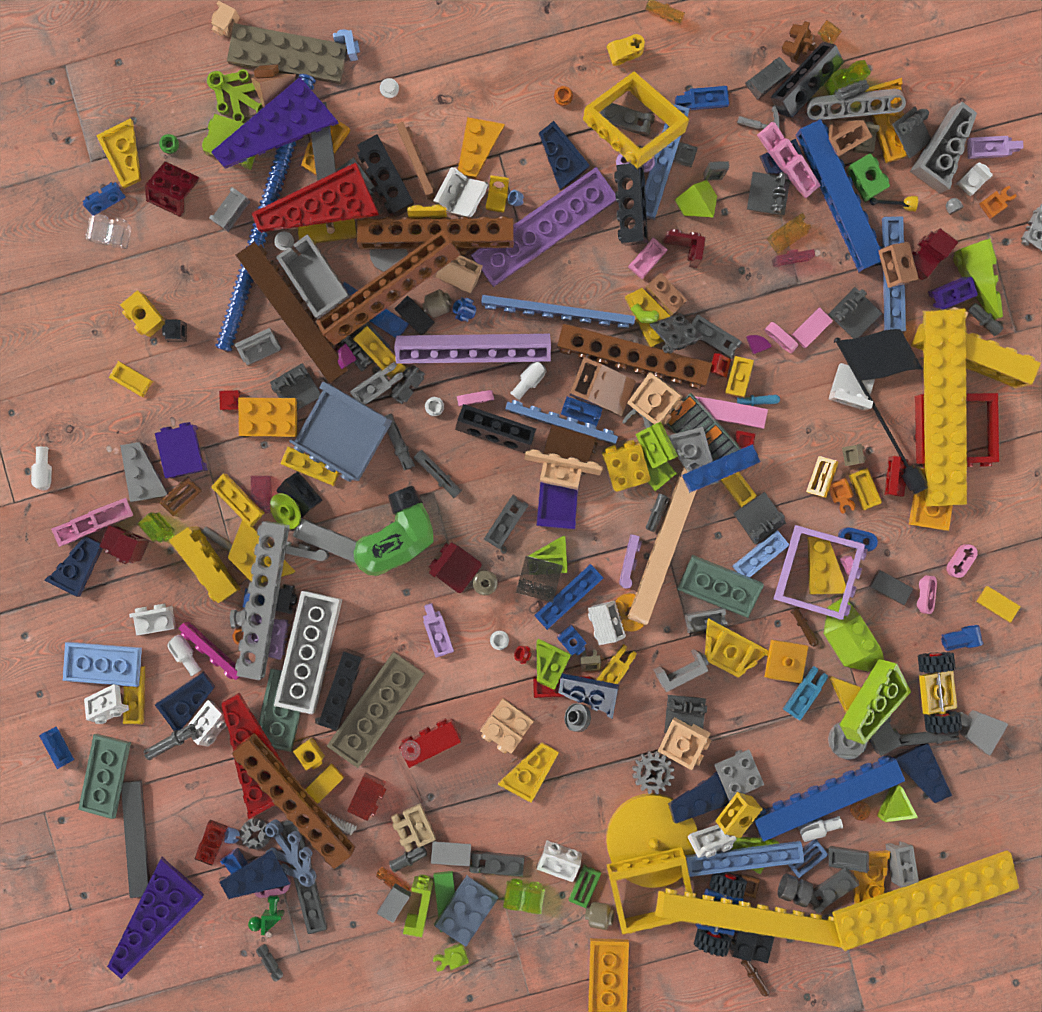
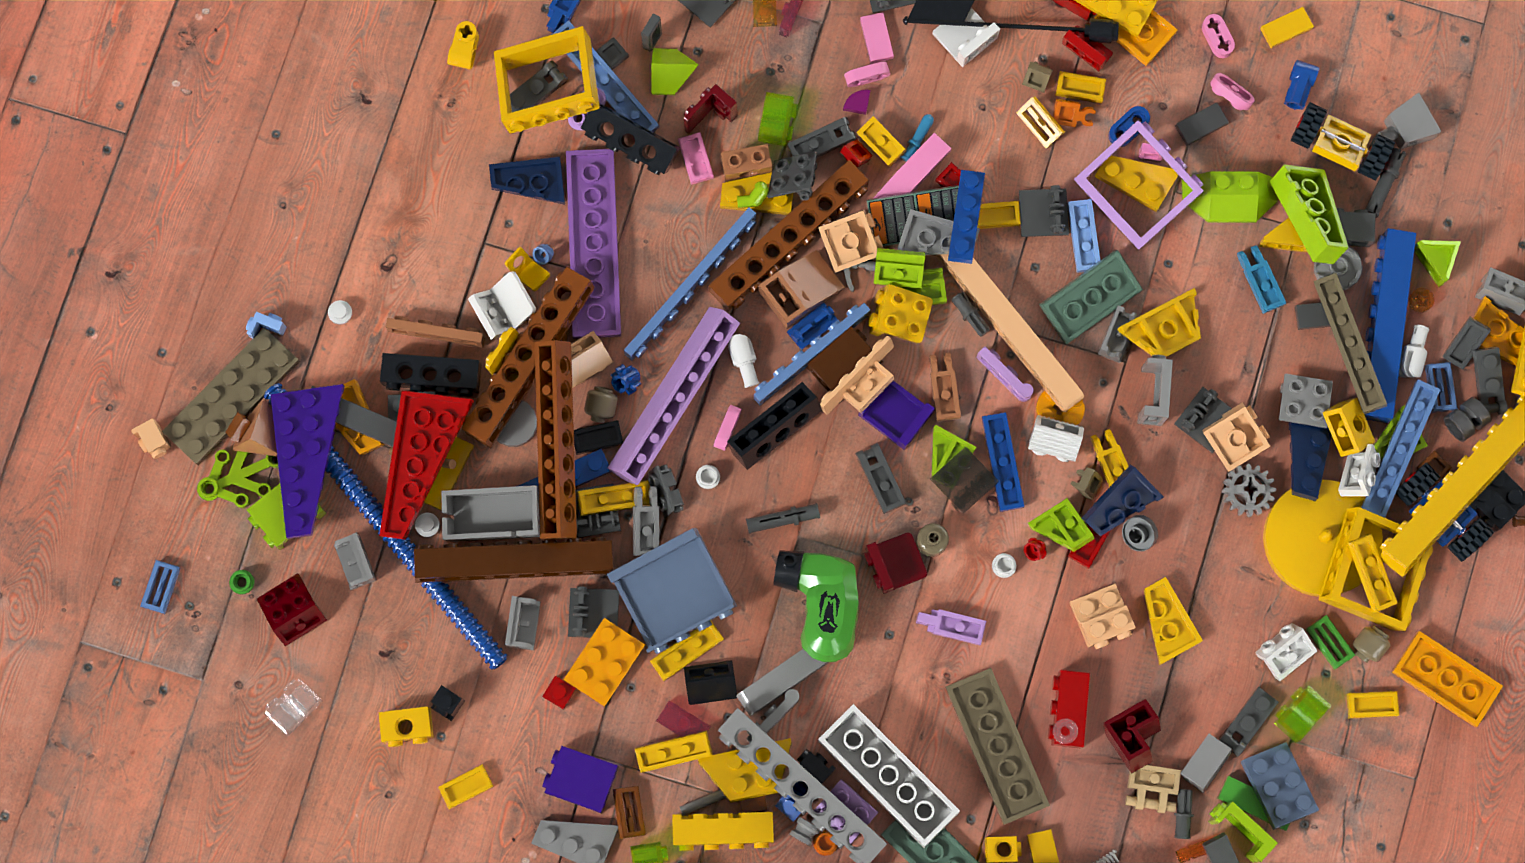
camera: 55 degrees left, 10 degrees down
(98, 202) = (253, 700): blue hinge -> none
(122, 153) = (217, 638): yellow wing -> none
(132, 100) = (170, 587): none -> medium blue tile
(285, 510) = (715, 712): lime dish -> none
(341, 689) = (952, 768): black brick -> none
(346, 356) = (595, 532): magenta tile -> none
(366, 797) = (1087, 815): clear red brick -> none
(400, 447) = (728, 540): dark grey pin -> none
(437, 791) = (1128, 734): none -> dark red brick
(454, 957) = (1324, 833): lime plate -> none
(477, 143) = (460, 259): light orange wing -> none
(560, 938) = (1372, 704): none -> yellow tile
(563, 95) = (468, 139): orange plate -> none
(568, 634) = (1046, 493): blue brick -> none
(593, 527) = (944, 390): none -> nougat hinge
(645, 892) = (1372, 573): none -> yellow tile
(710, 295) = (776, 119): none -> clear neon green brick
(786, 661) = (1213, 278): light orange plate -> none
(797, 782) = (1350, 343): none -> dark tan plate
(802, 622) = (1193, 237): reddish brown piece -> none
(806, 748) = (1311, 316): none -> dark grey tile
(924, 770) = (1419, 208): dark blue wing -> none

